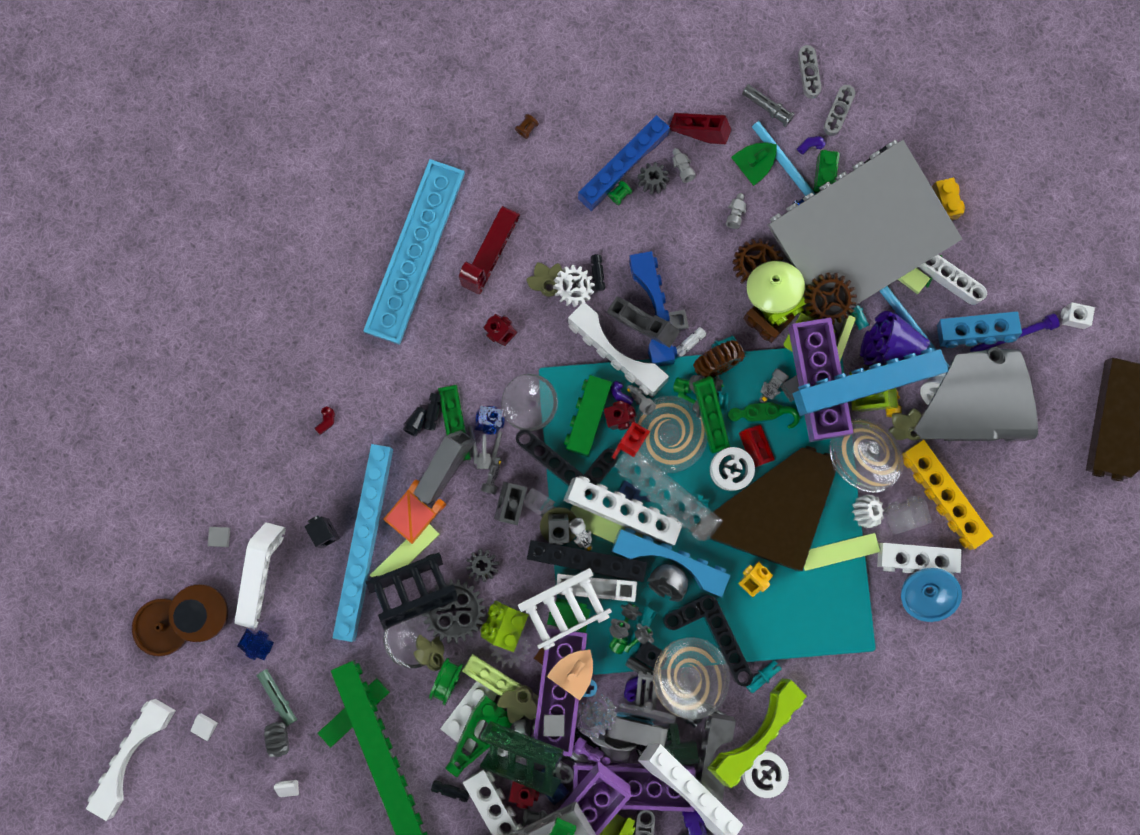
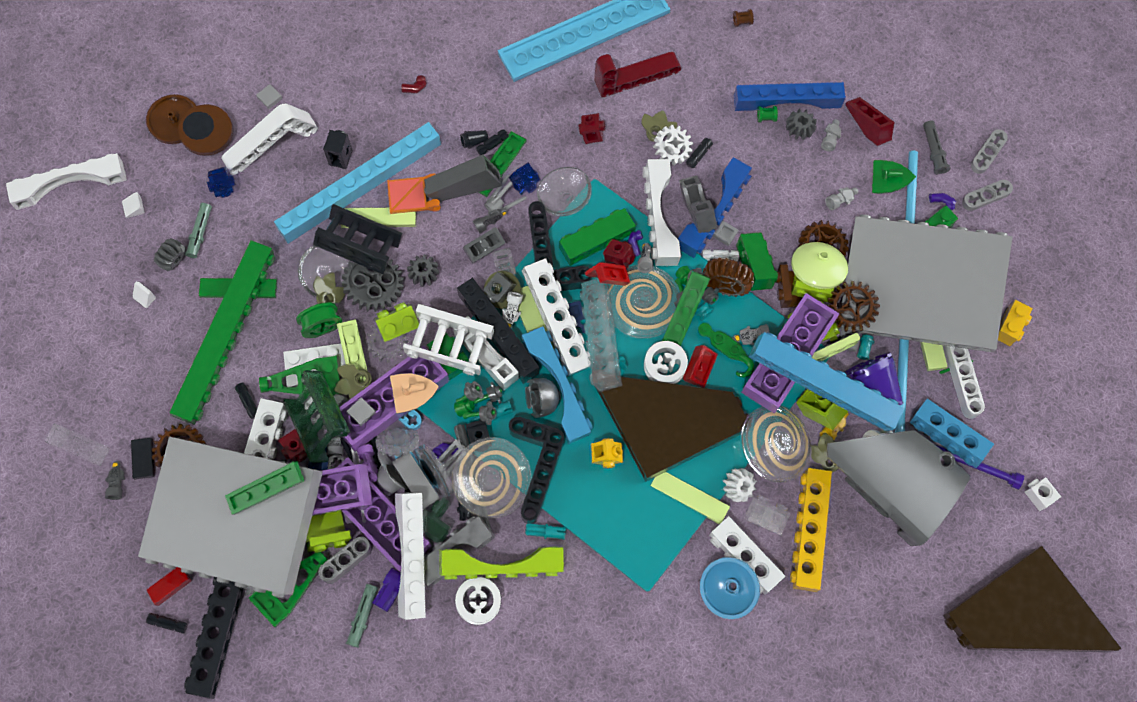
camera: 40 degrees right, 10 degrees down
(723, 323) = (755, 255): none -> green brick

